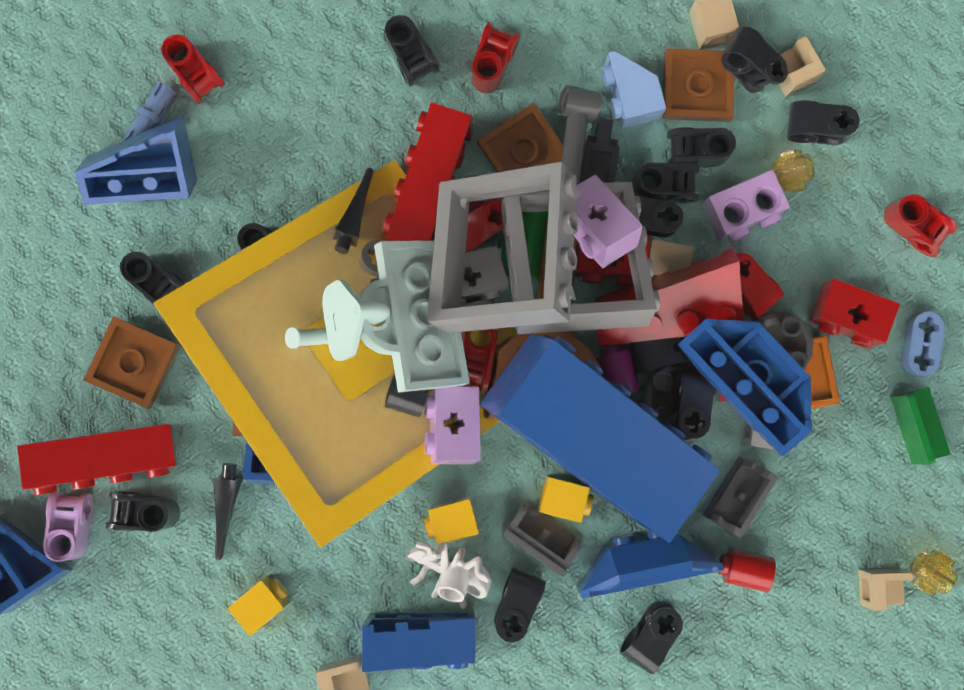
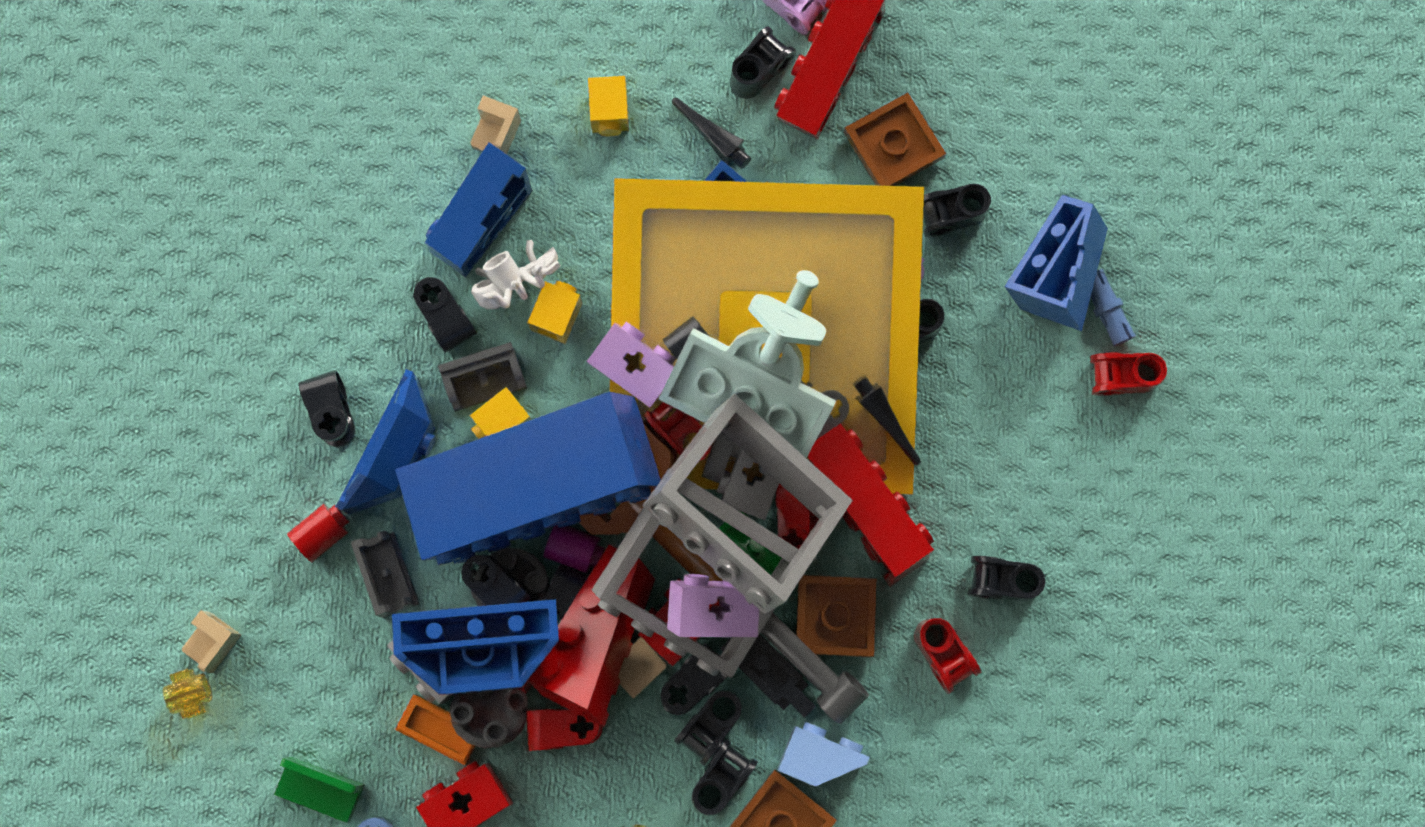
camera: 125 degrees right, 5 degrees down
(743, 201) = (645, 782): lavender brick -> none

